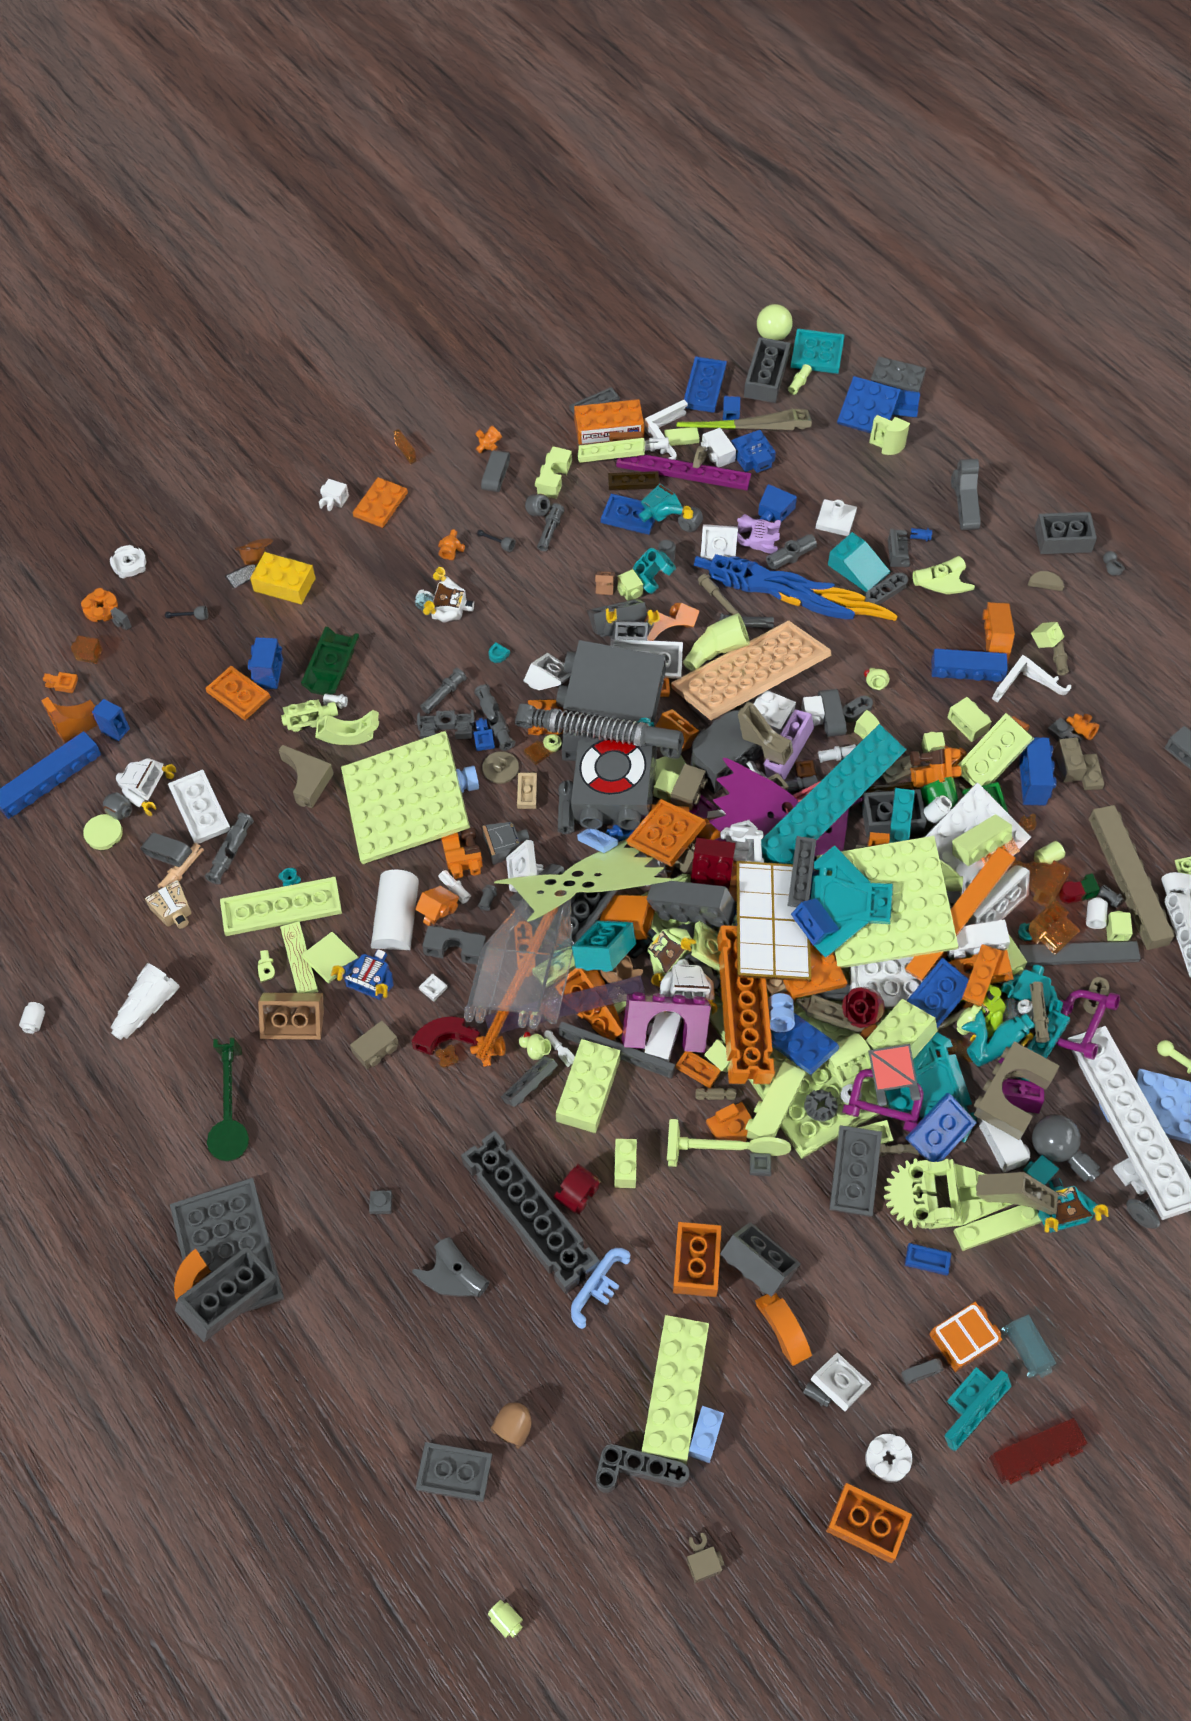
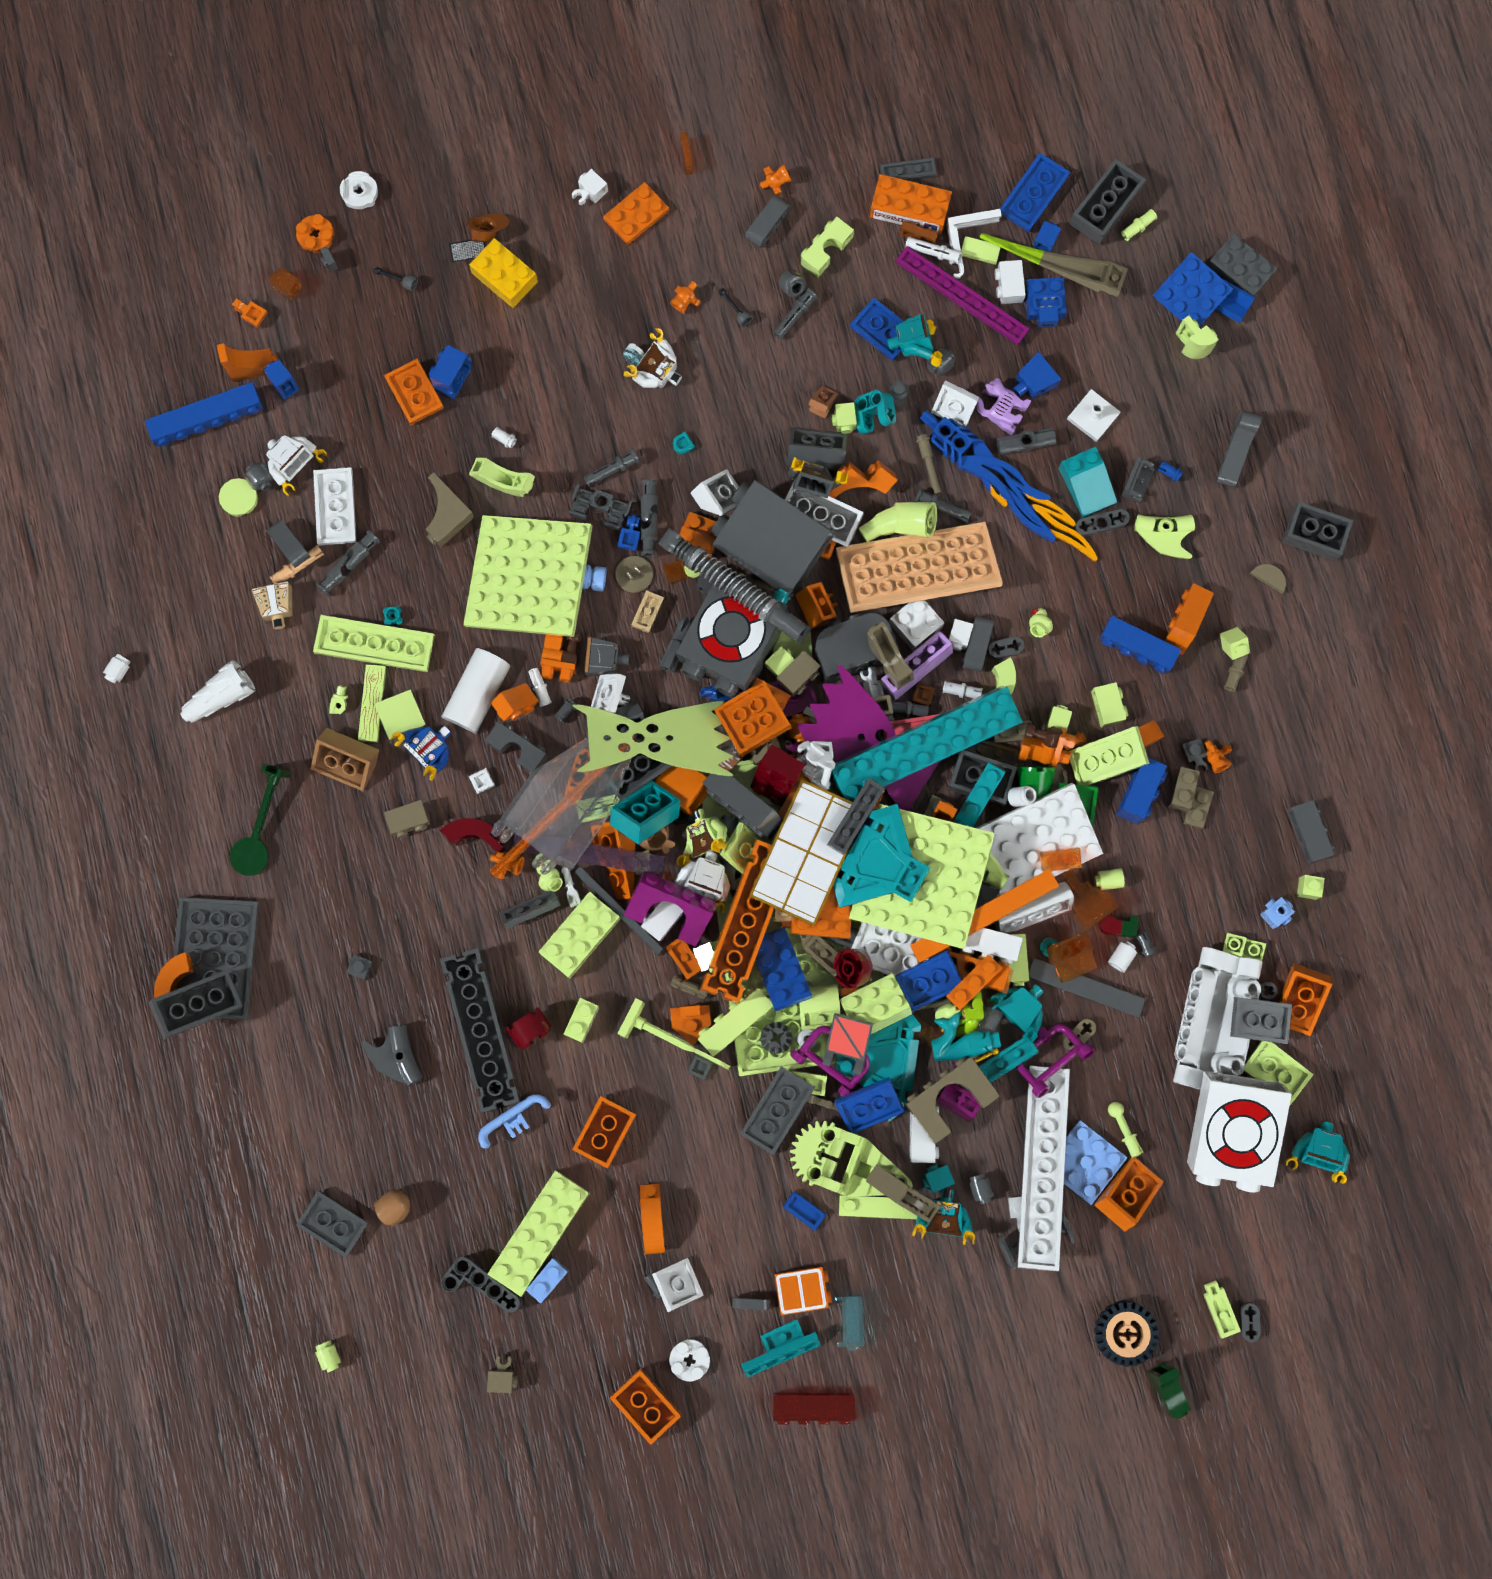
camera: 20 degrees right, 20 degrees up
(306, 714) = (468, 443): yellowish green brick -> none
(329, 662) = (514, 390): dark green piece -> none
(452, 1059) = (471, 858): clear orange plate -> none
(597, 840) = (690, 693): light blue plate -> none
(611, 450) = (896, 243): yellowish green plate -> none
(633, 480) = (904, 288): dark brown plate -> none
(700, 456) = (985, 287): dark tan tile -> none
(760, 1259) = (656, 1155): dark grey brick -> none
(774, 322) = (1144, 142): yellowish green piece -> none
(781, 1012) = (775, 940): light blue wheel -> none
(814, 920) = (843, 871): blue panel -> none
(818, 350) = (1176, 194): teal plate -> none
(982, 840) = (1046, 847): yellowish green brick -> none
(1025, 1007) = (1005, 1024): white pin -> none
(1028, 823) = (1107, 838): clear orange plate -> none
(1032, 671) = (1200, 677): white hinge -> none
(1039, 1010) = (1013, 1033): dark tan pin -> none
(1056, 1138) = (967, 1155): dark grey piece -> none
(1113, 566) = (1348, 590): dark grey plate -> none
(1118, 927) = (1136, 978): yellowish green brick -> none
(1131, 877) = (1175, 933): dark tan brick -> none

